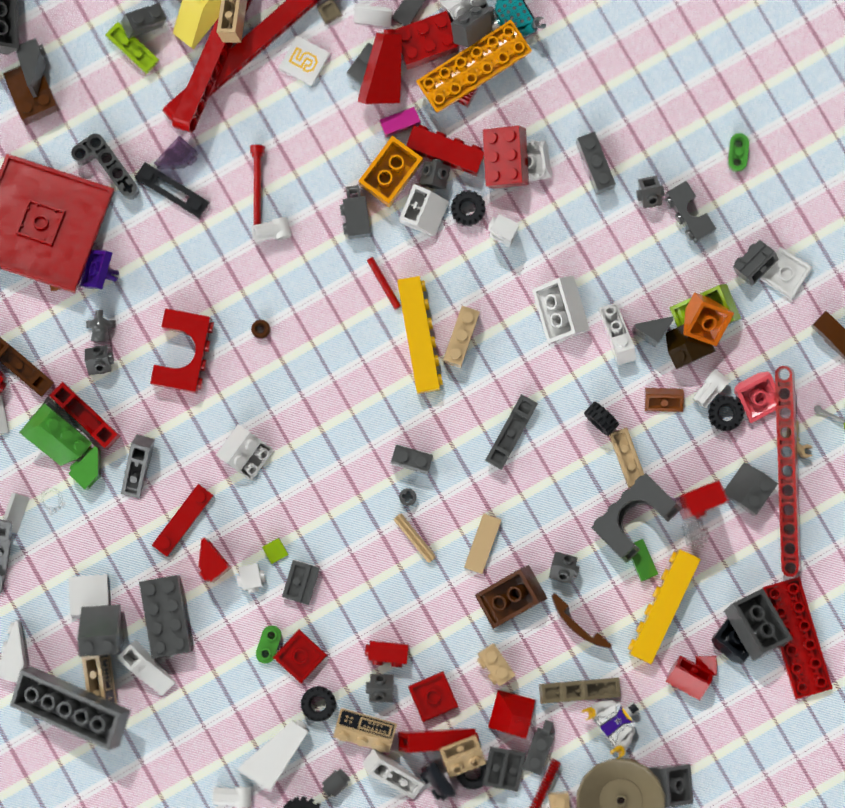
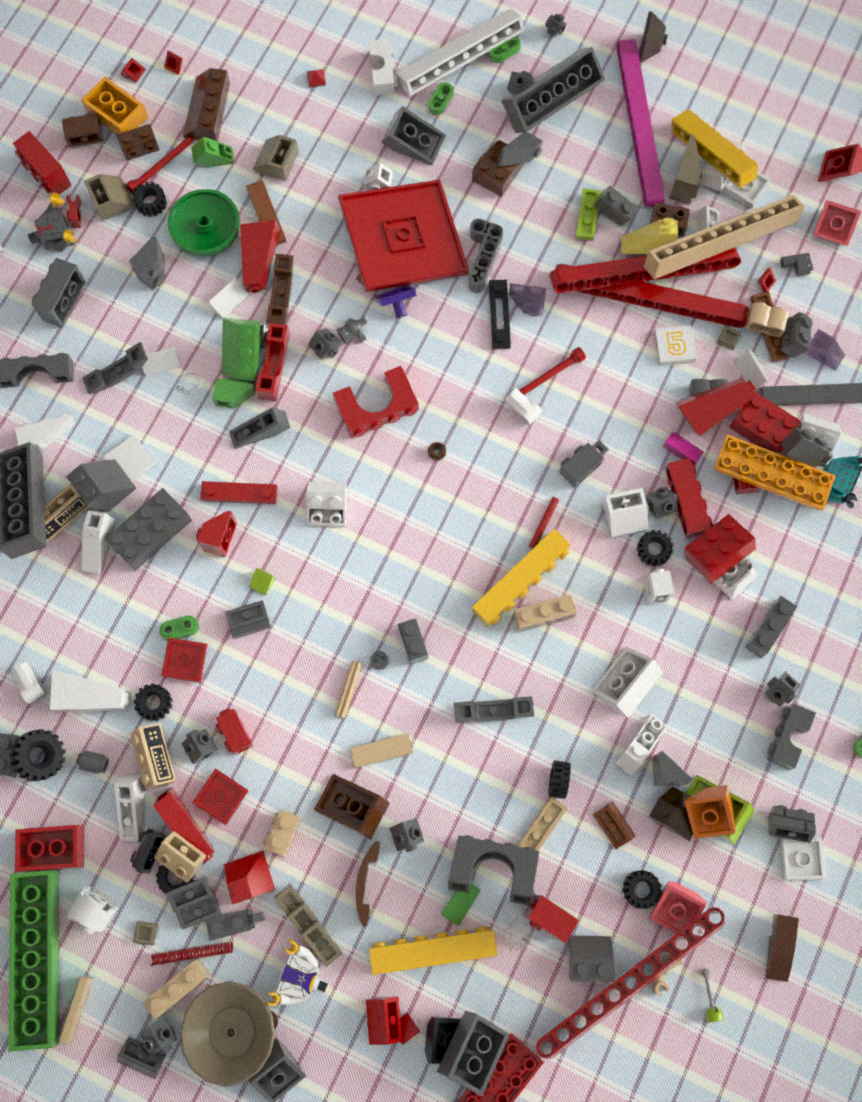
camera: 55 degrees right, 10 degrees down
(250, 578) = (225, 576): white brick -> none
(390, 171) = (638, 465): light orange brick -> none
(713, 385) = (659, 861): white piece -> none

